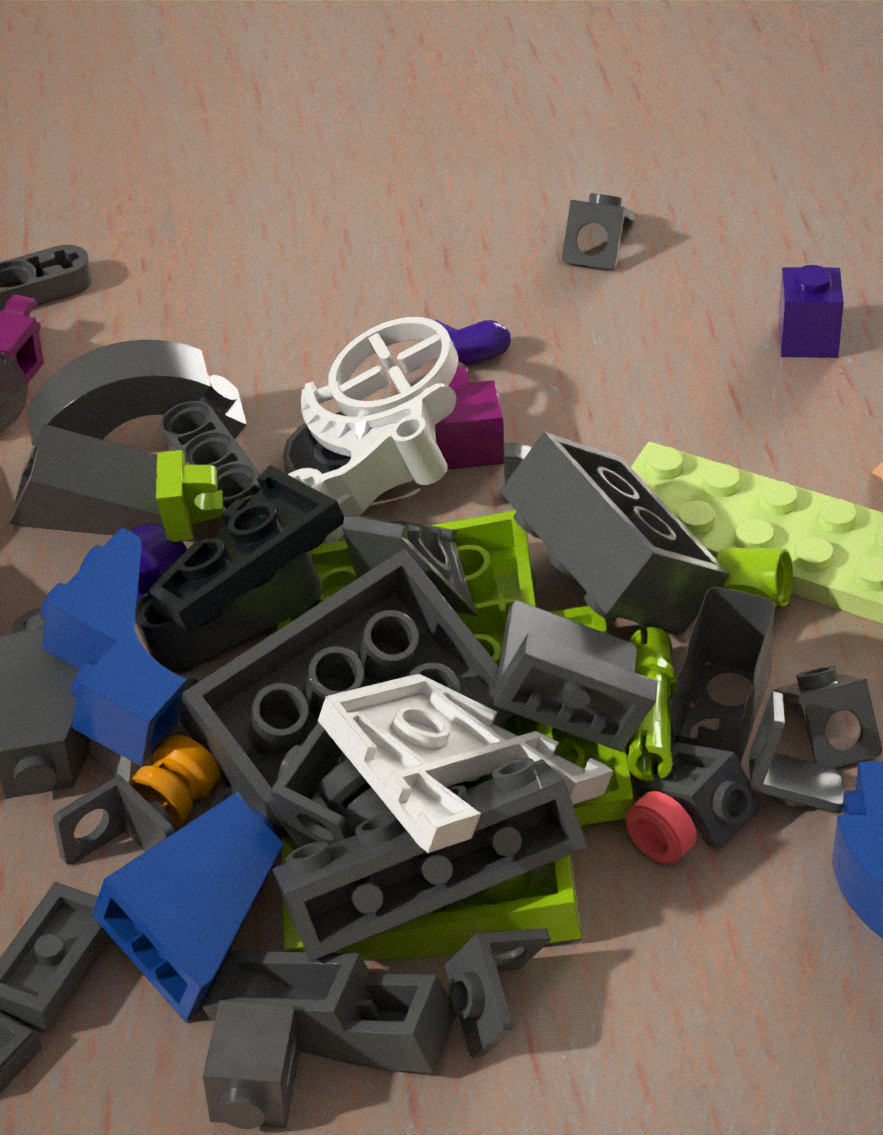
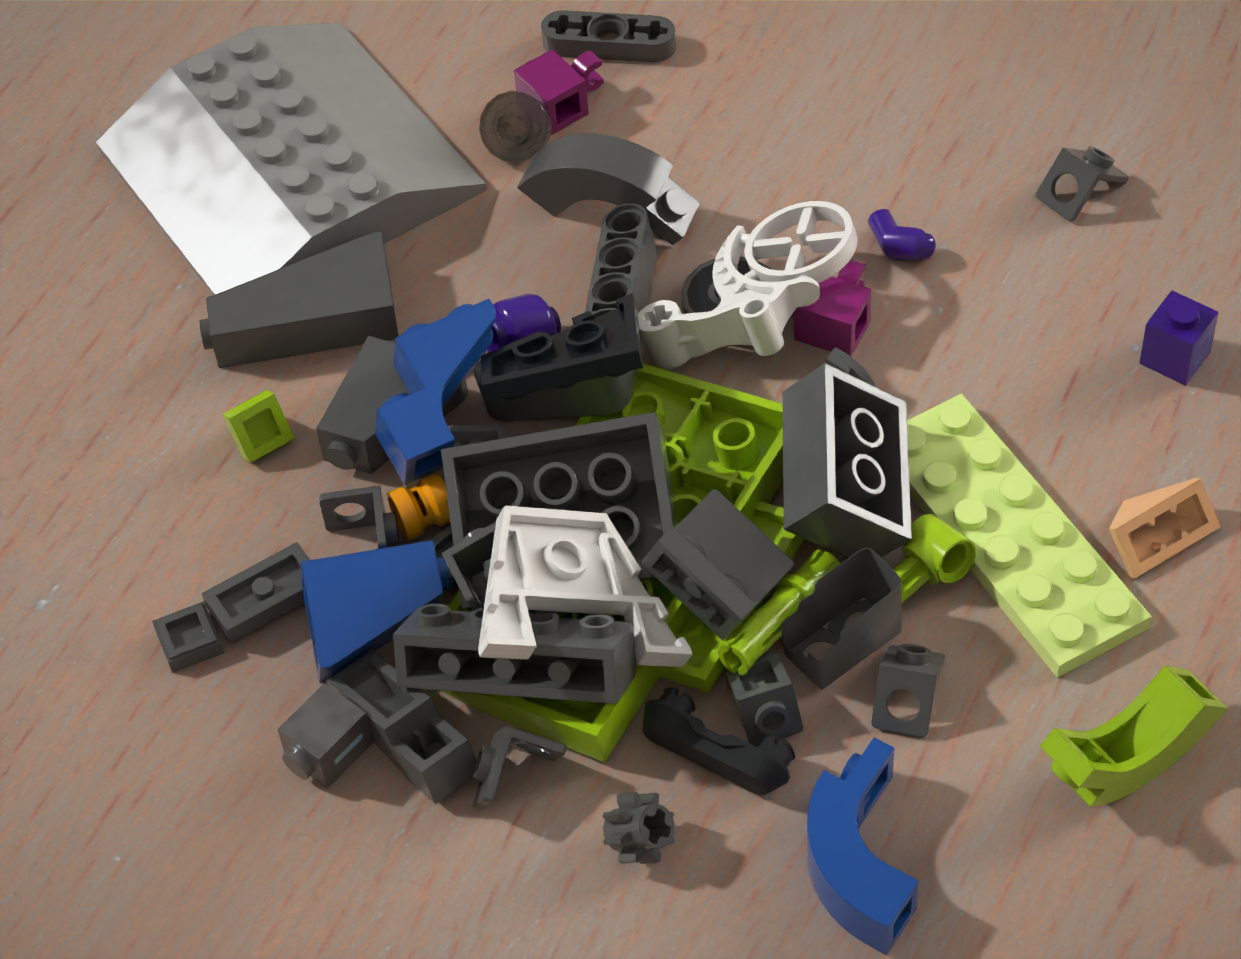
camera: 35 degrees right, 10 degrees up
(85, 485) = (531, 249): dark grey slope -> none
(185, 495) = (561, 287): lime tile -> none
(431, 547) = (693, 410): dark grey slope -> none
(660, 827) = (711, 707): coral tile -> none
(687, 974) = (638, 828): none -> dark grey gear
(743, 858) = (755, 768): none -> black piece
(786, 777) = (835, 718): dark grey bracket -> none

